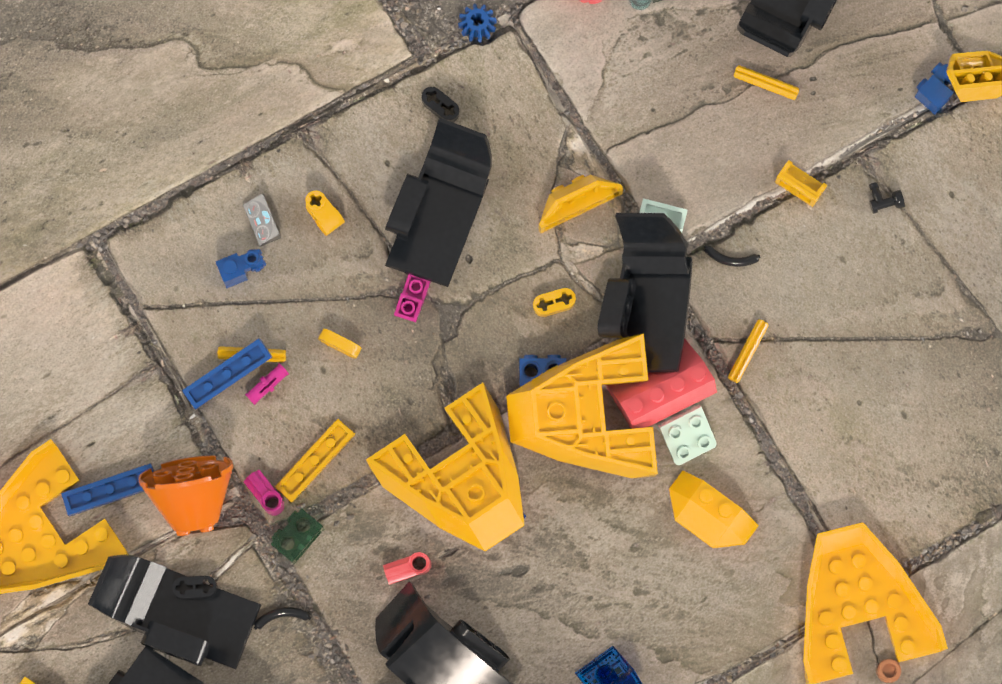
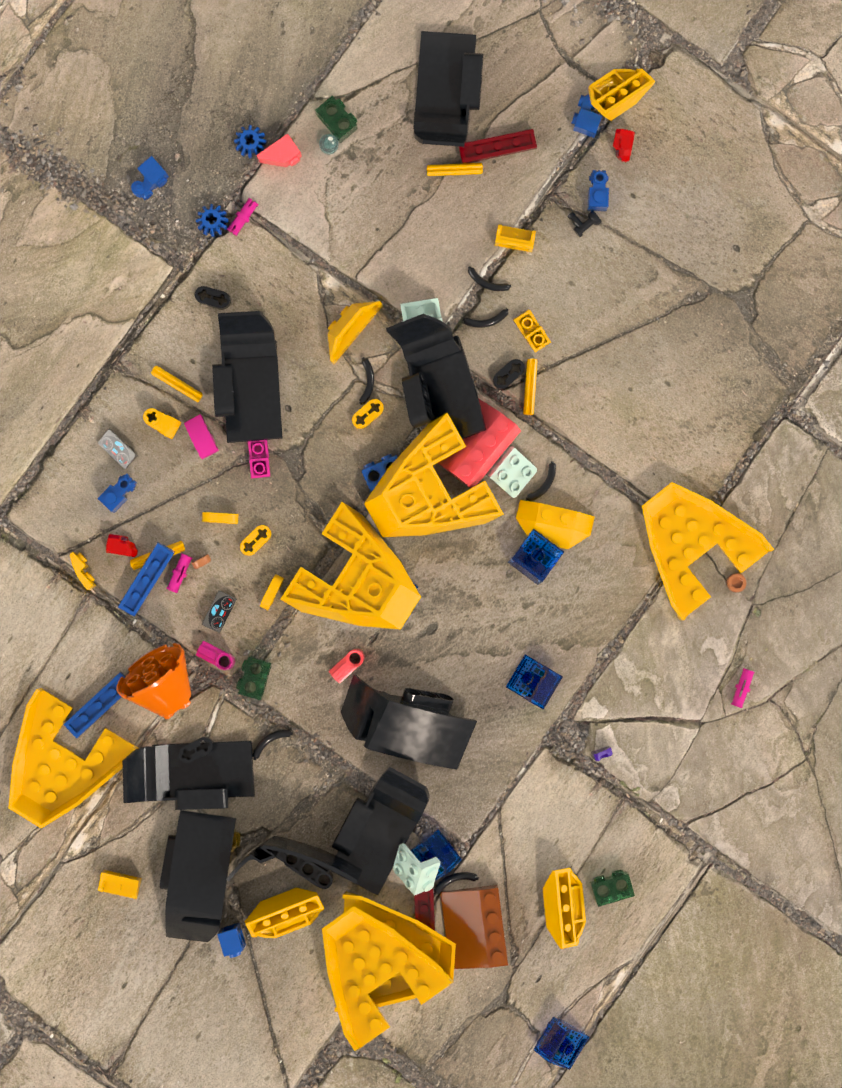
camera: 20 degrees left, 10 degrees up
(161, 328) = (79, 564): none -> yellow slope
(216, 326) = (121, 545): none -> red rock
(291, 445) = (219, 611): none -> slope
(295, 382) = (201, 561): none -> nougat tile
(314, 460) = (241, 614): yellow tile -> none
(359, 179) = (177, 383): none -> yellow axle
(359, 246) = (201, 436): none -> dark pink slope
(359, 450) = (271, 592): none -> yellow beam
(370, 390) = (252, 537): none -> yellow beam
(512, 33) = (242, 217): none -> dark pink pin
(572, 269) = (370, 381): none -> black piece
(672, 539) = (535, 557): none -> clear blue slope
(720, 466) = (546, 485): none -> black piece
(730, 332) = (511, 377): none -> black beam
(747, 219) = (485, 284): none -> black piece
(776, 291) = (531, 330): none -> yellow slope
(824, 78) = (498, 146): none -> dark red plate
(914, 172) = (598, 194): none -> blue brick
(964, 133) = (623, 144): none -> red rock

